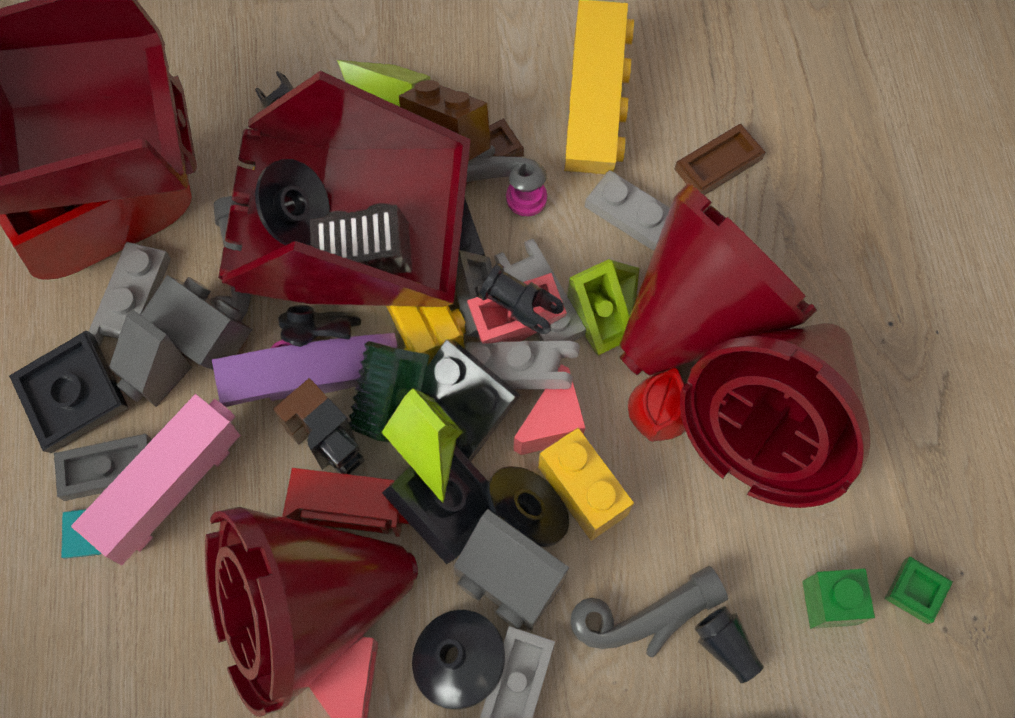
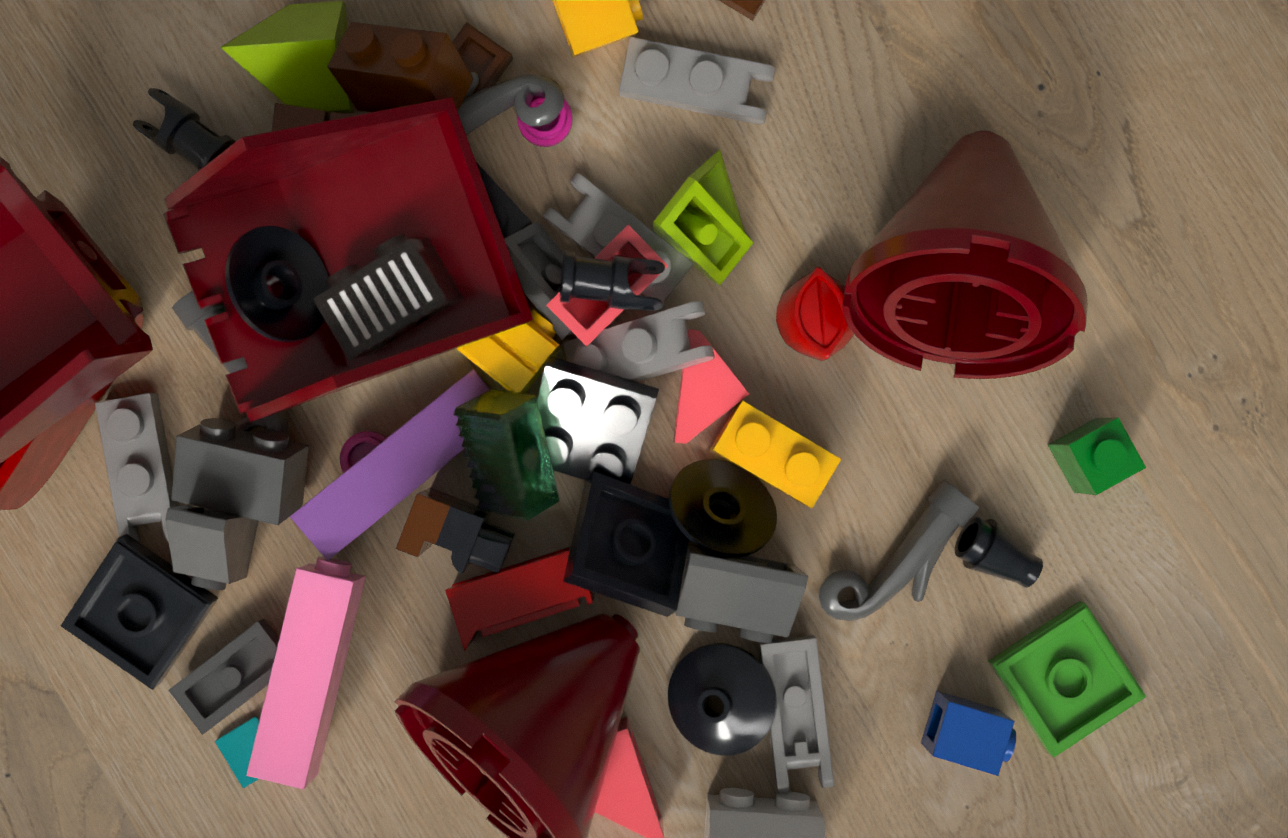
camera: 25 degrees left, 20 degrees up
(302, 324) = (373, 409): black plate -> none
(424, 438) = (583, 498): lime slope -> none
(705, 289) = (823, 160): dark red cone -> none
(918, 590) = (1175, 399): green tile -> none

